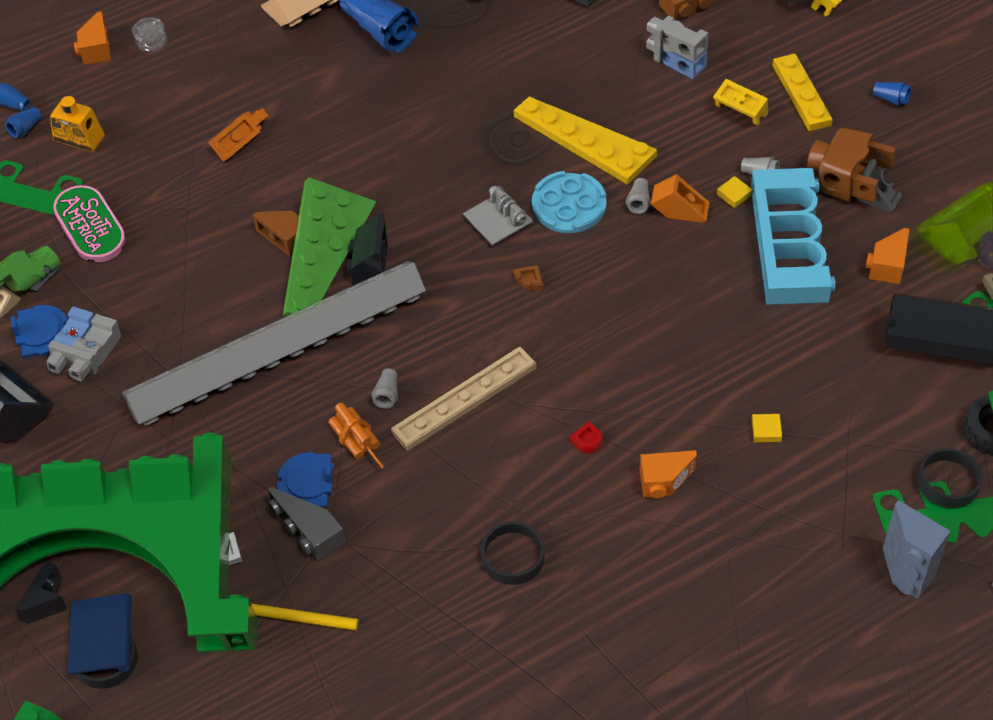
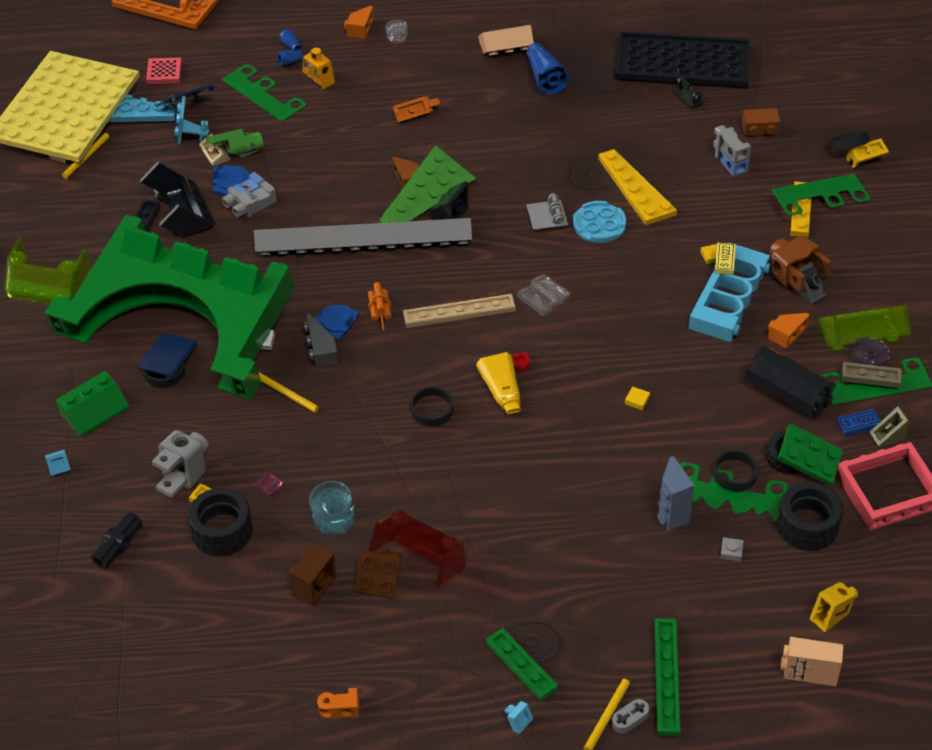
camera: 25 degrees right, 5 degrees down
(40, 598) = (147, 323): black slope -> none
(89, 223) = (294, 130): tile -> none
(385, 391) = (413, 287): light grey cone -> none
(529, 278) = (544, 257): dark orange tile -> none
(560, 331) = (543, 294): none -> clear slope
(578, 472) = (501, 379): none -> yellow piece
(638, 197) = (644, 235): light grey cone -> none
(665, 472) = (554, 397): orange slope -> none
(679, 200) = (670, 245): orange slope -> none
(742, 100) = (753, 199): yellow hinge -> none
(763, 163) = (739, 241): light grey cone -> none
(765, 193) = (725, 258): none -> light yellow tile
(814, 53) = (824, 187): none -> green piece
(894, 92) = (863, 230): blue cone -> none

